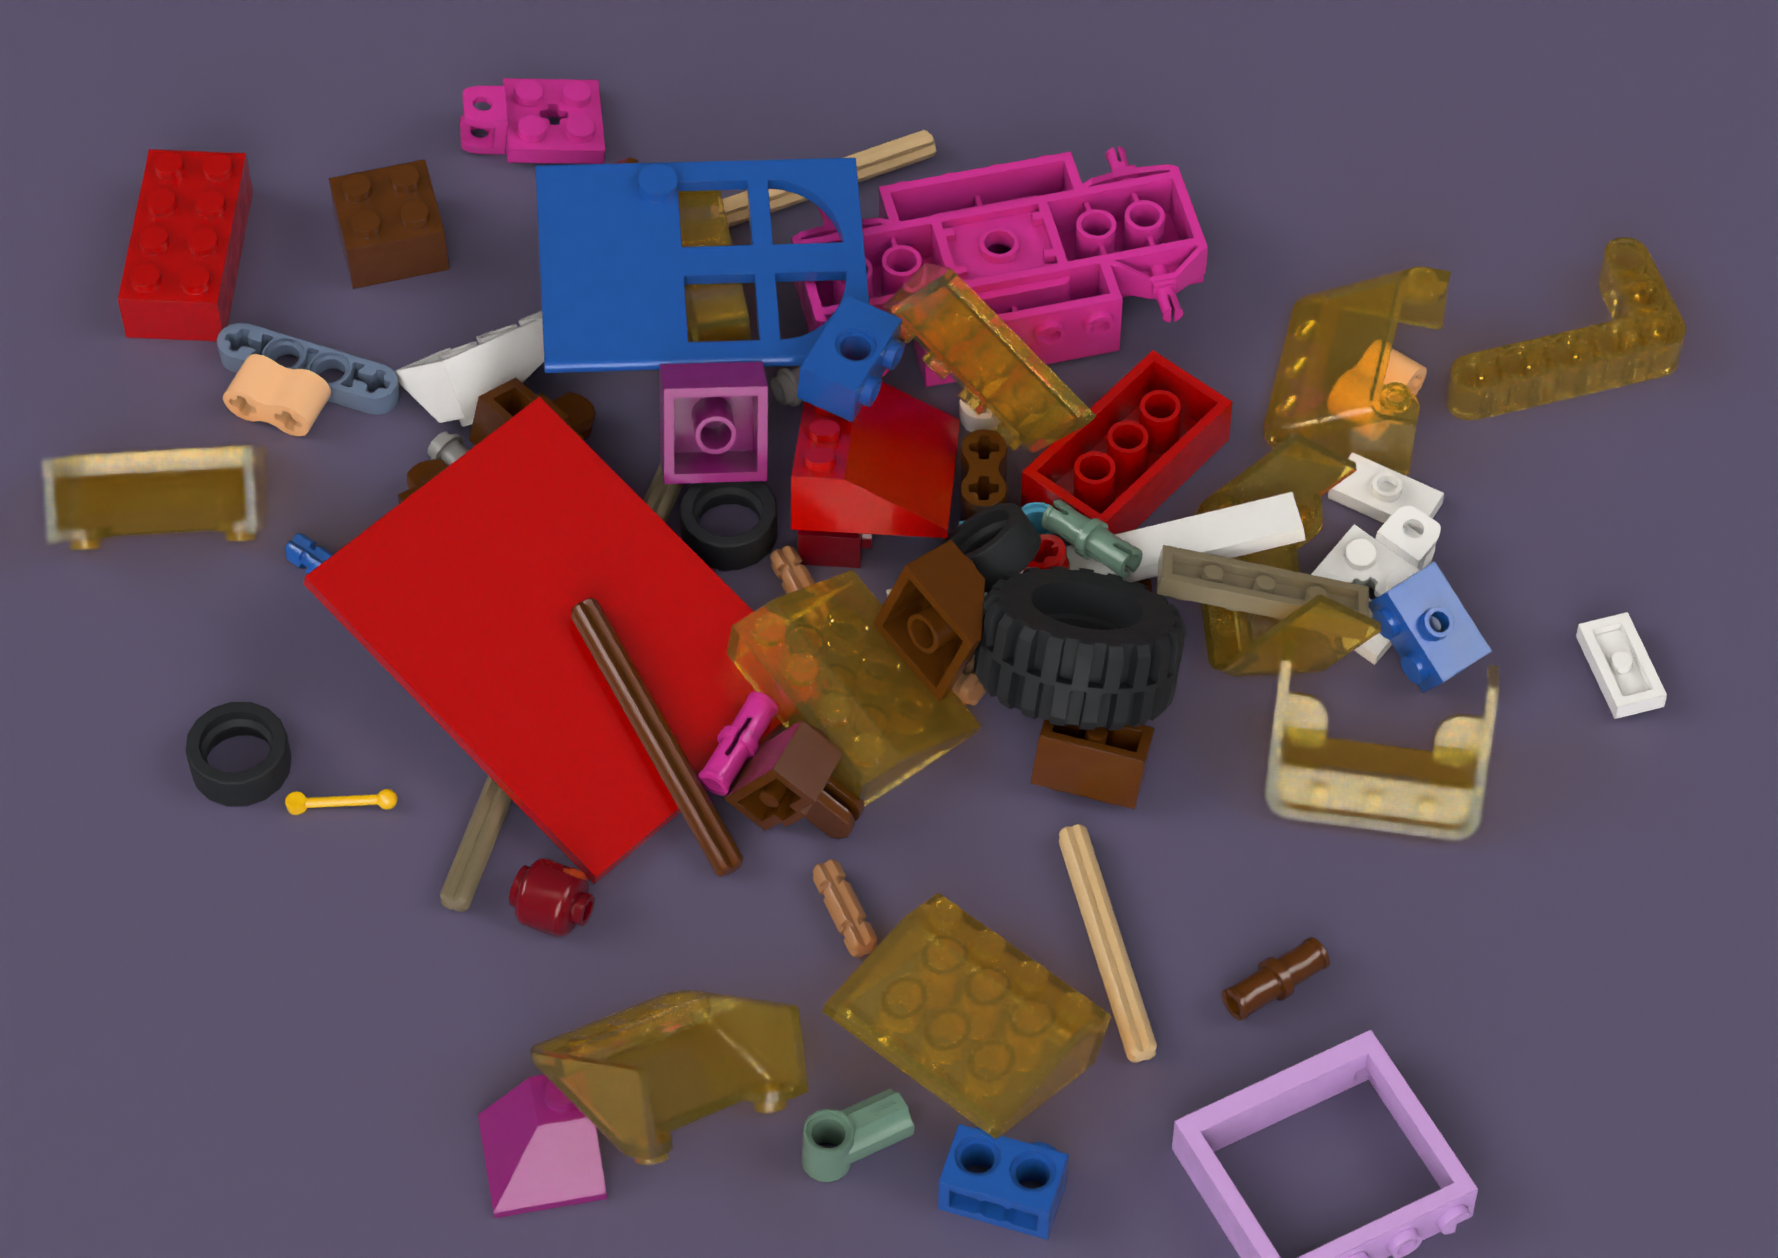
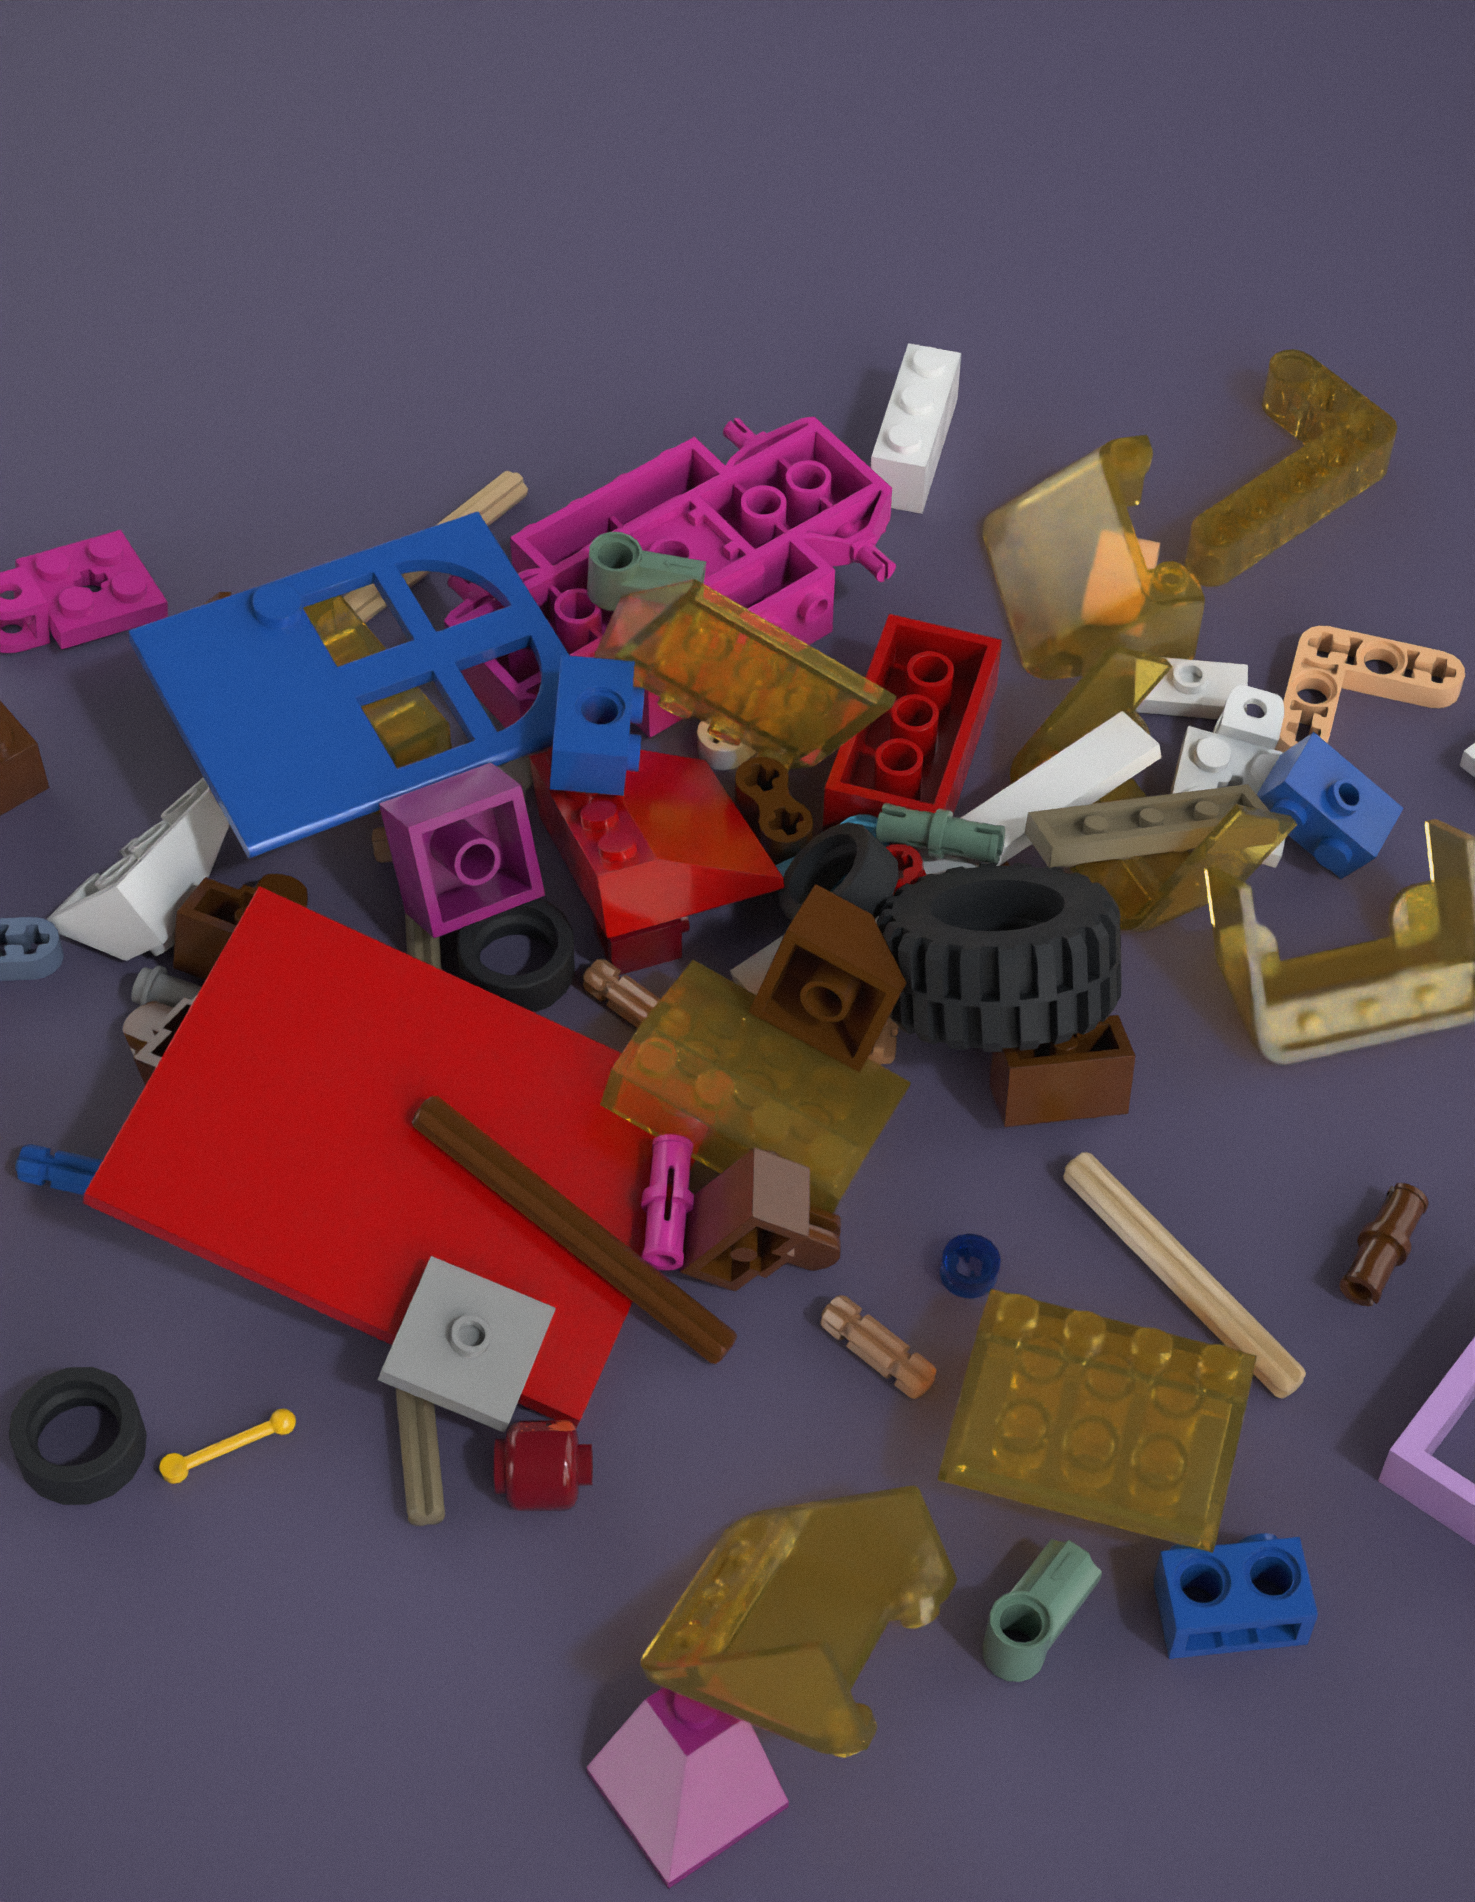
camera: 25 degrees left, 0 degrees up
(534, 788) = (467, 1344): none -> light grey plate
(945, 244) = (622, 567): none -> sand green piece
(955, 863) = (970, 1246): none -> clear blue bush
(1277, 202) = (917, 424): none -> white brick
(1515, 526) = (1333, 673): none -> light nougat beam

